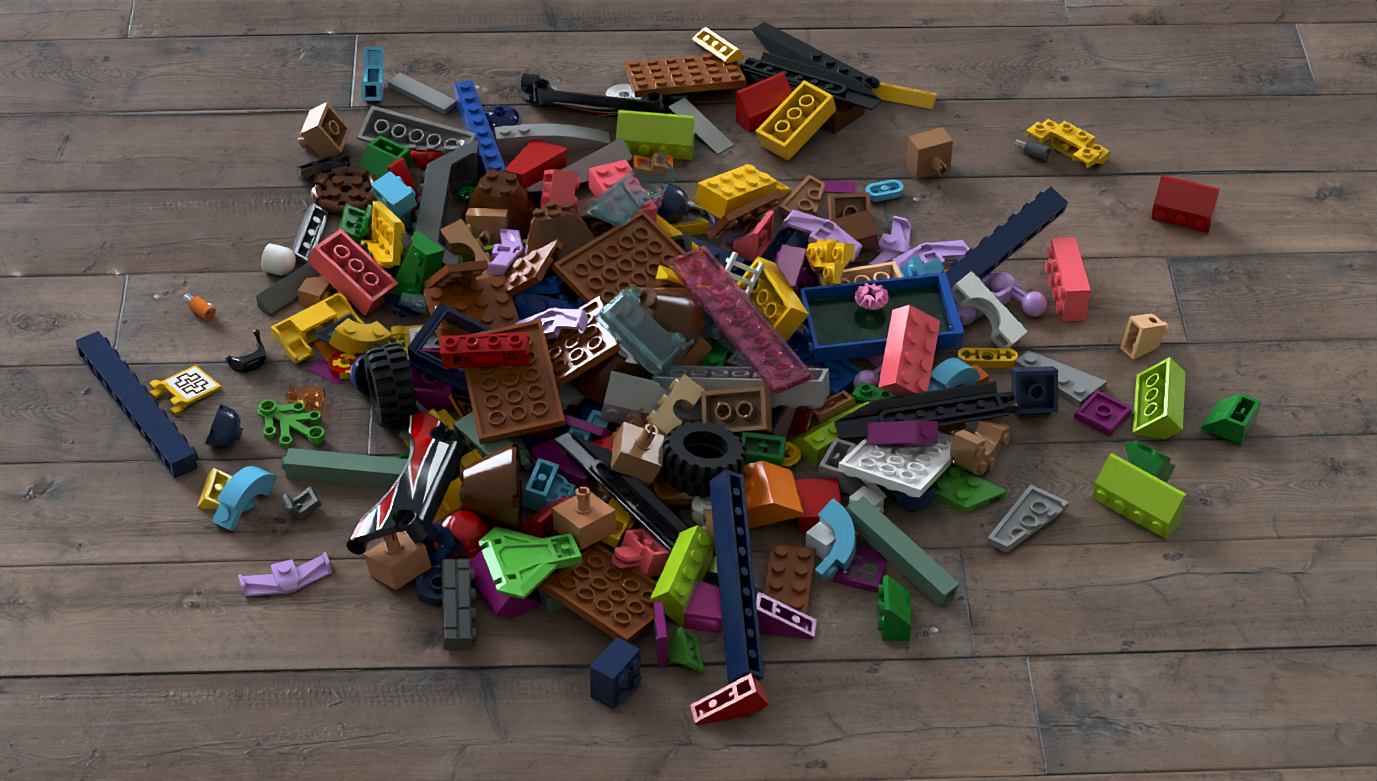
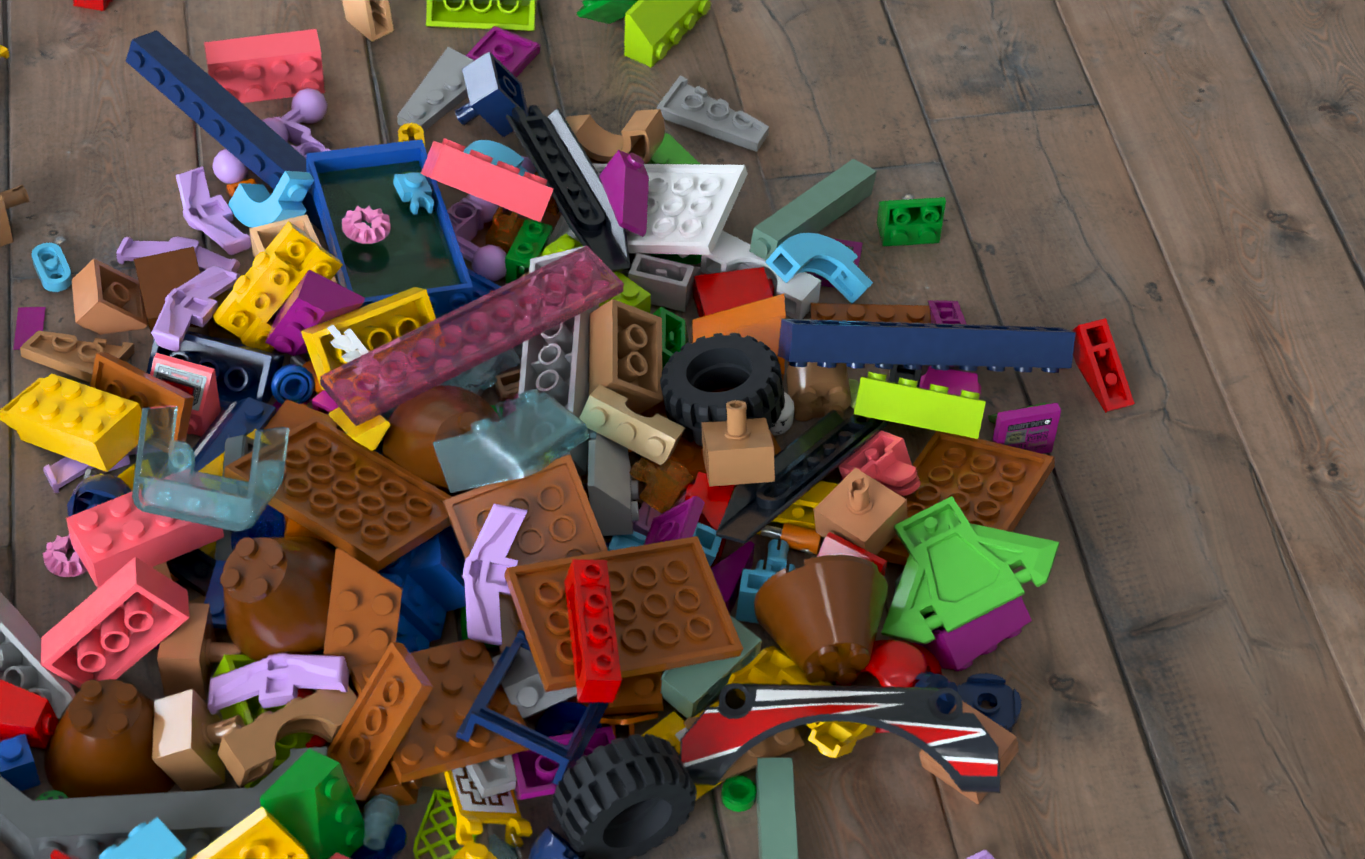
camera: 100 degrees left, 5 degrees up
(456, 604) = (1034, 664): dark grey brick -> none
(615, 673) = (1105, 471): dark blue brick -> none
(973, 293) = (353, 129): white arch -> none

